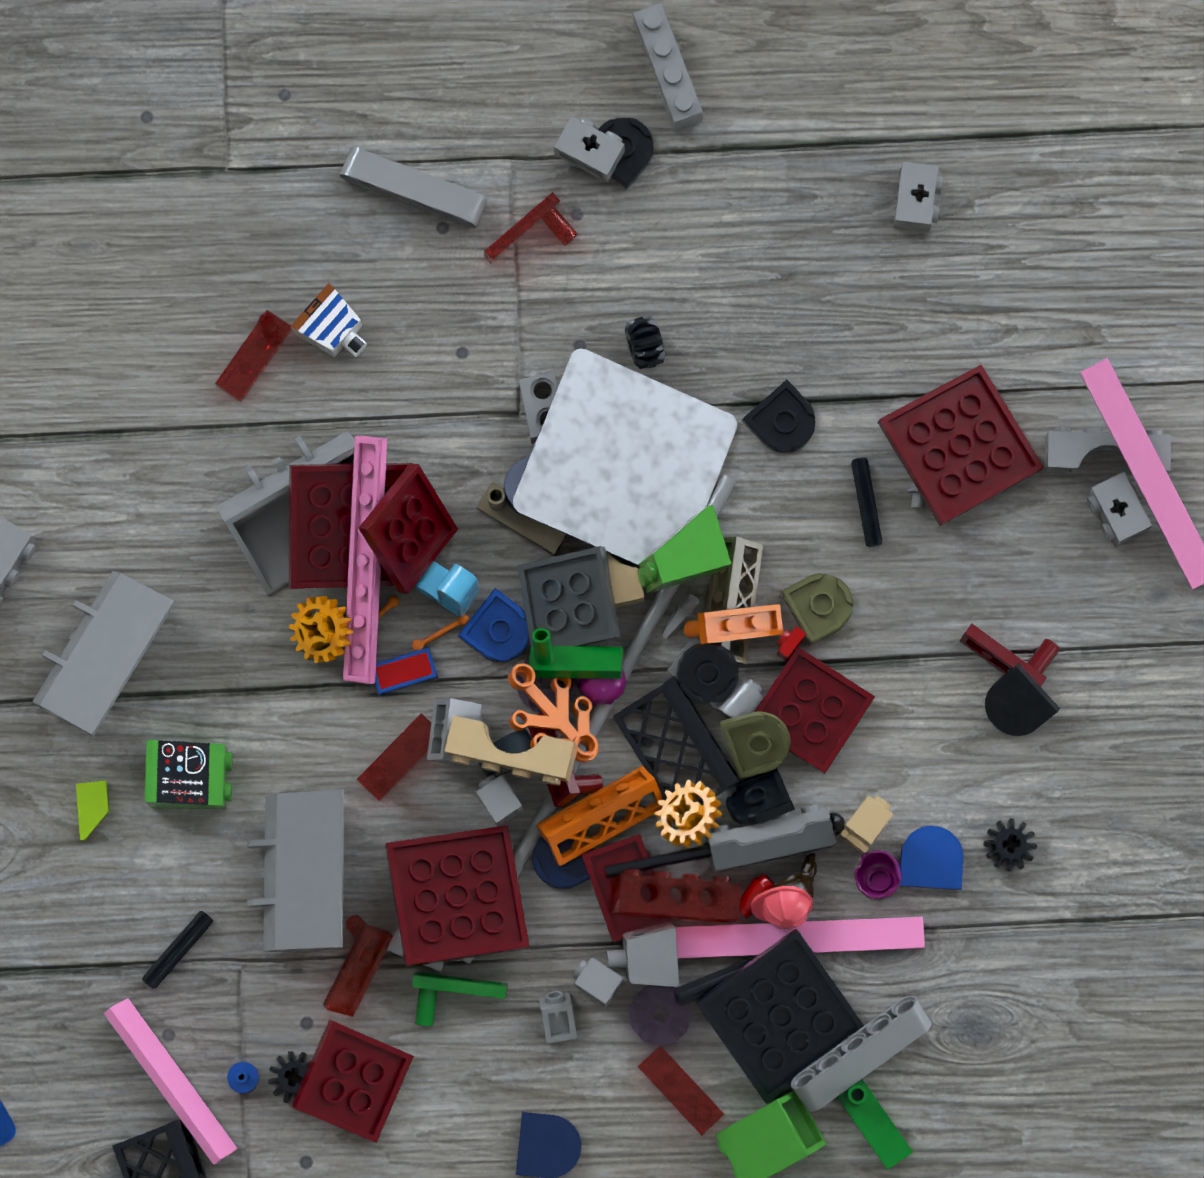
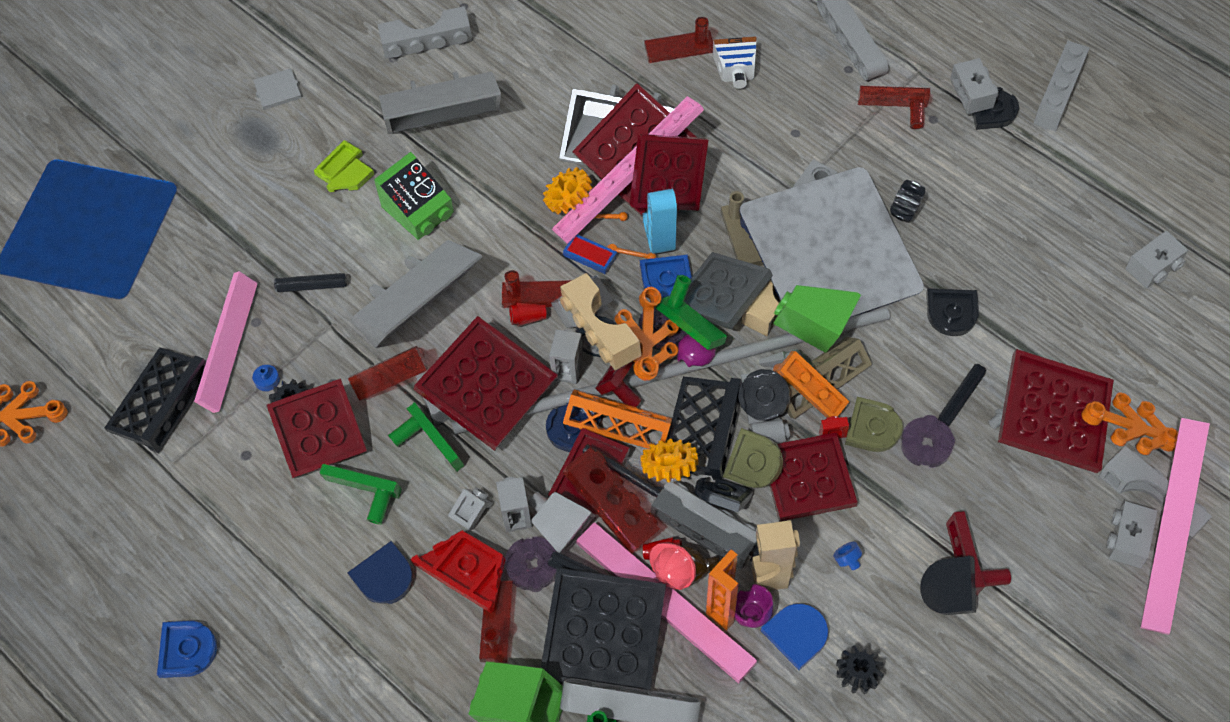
camera: 45 degrees right, 20 degrees down
(59, 803) = (337, 161): none -> lime tile
(412, 789) = (526, 313): none -> red cone
(467, 1075) = (381, 487): none -> green piece
(611, 1072) = (466, 568): none -> red wing
(851, 900) = (723, 591): none -> orange fence
(863, 587) = (929, 428): none -> clear purple plate
(910, 752) = (848, 555): none -> blue tile
(1037, 397) = (1163, 436): none -> orange plant

